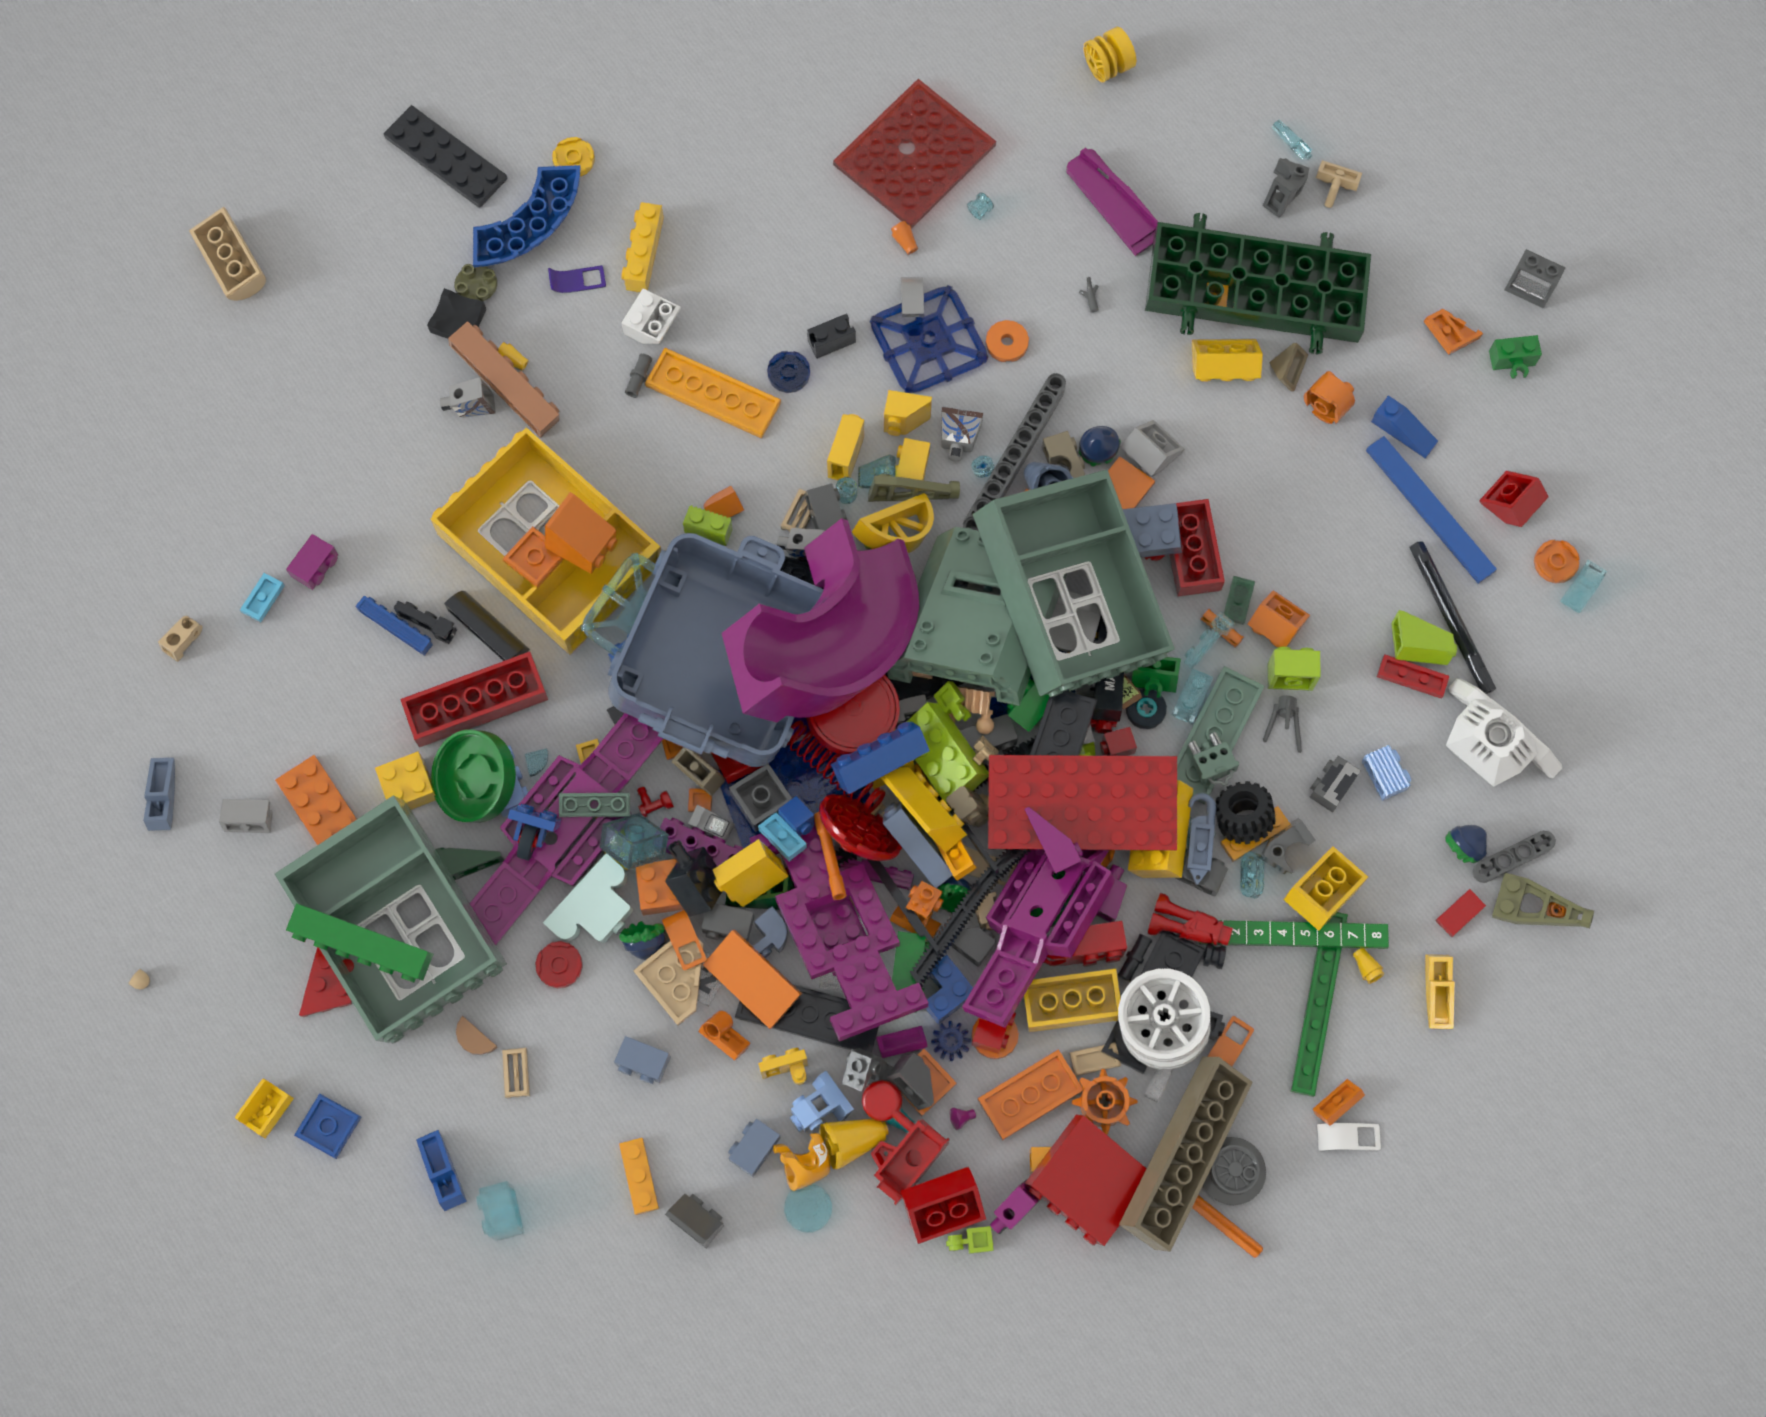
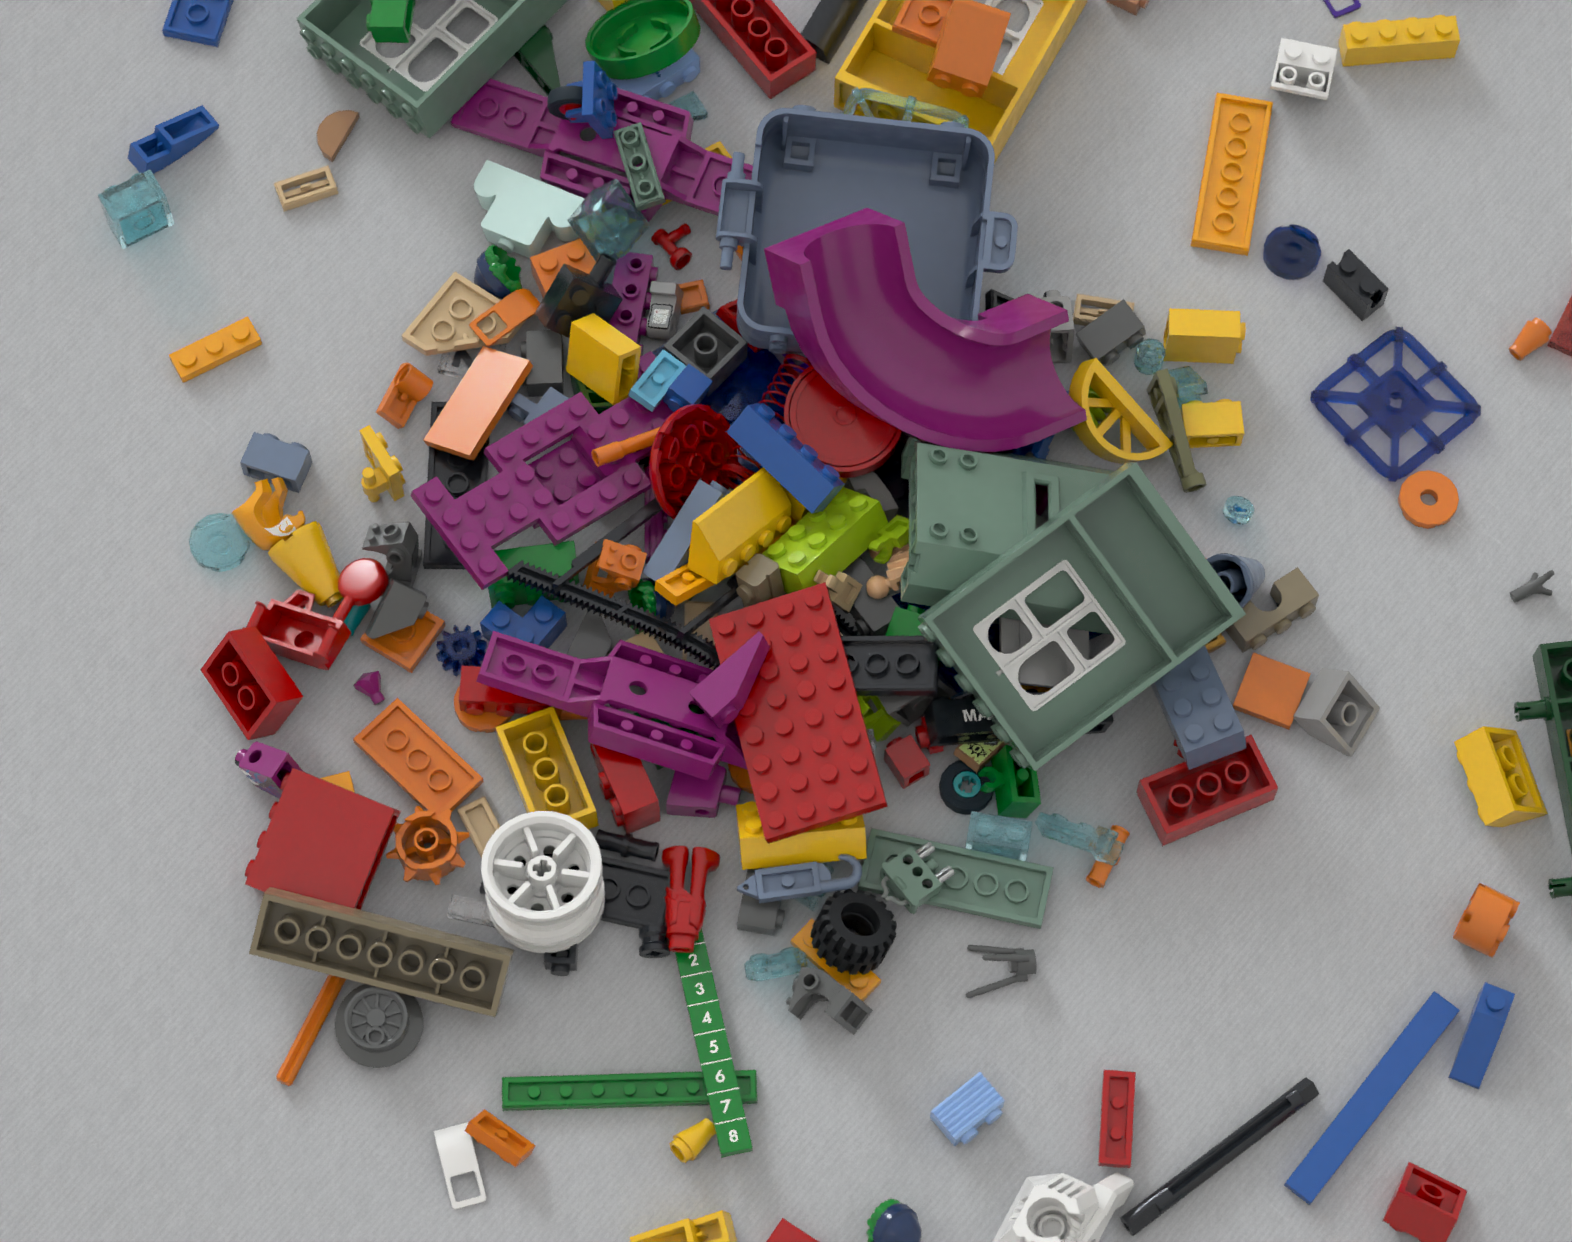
camera: 75 degrees right, 5 degrees down
(559, 964) = (446, 198): red tile -> none
(638, 375) = (1223, 82): dark grey pin -> none
(641, 1060) = (351, 313): sand blue brick -> none
(695, 1220) = (172, 415): dark grey slope -> none
(698, 770) = (719, 286): dark tan brick -> none
(708, 525) = (1047, 209): lime brick -> none
(724, 502) = (1083, 221): orange brick -> none
(805, 1114) = (352, 532): light blue tile -> none
(901, 1042) = (447, 595): magenta tile -> none
(905, 412) = (1274, 392): yellow slope -> none
(912, 296) = (1443, 360): light grey brick -> none
(959, 431) = (1276, 469): torso -> none
(978, 1240) = (222, 740): lime plate -> none
(1018, 447) = (1277, 552): dark grey beam -> none
(1099, 445) = (1315, 643): dark blue hair -> none
(1227, 1048) = (535, 984): orange piece -> none
(1239, 599) = (1154, 868): clear green plate -> none
(1278, 619) = (1142, 924): orange slope -> none
(1289, 365) = (1520, 865): dark tan slope -> none
(1294, 669) = (1073, 952): lime brick -> none
(1325, 888) = (778, 1055): yellow brick -> none
(1335, 783) = (932, 1044): brick -> none
(1421, 640) = (1168, 1116): lime slope -> none

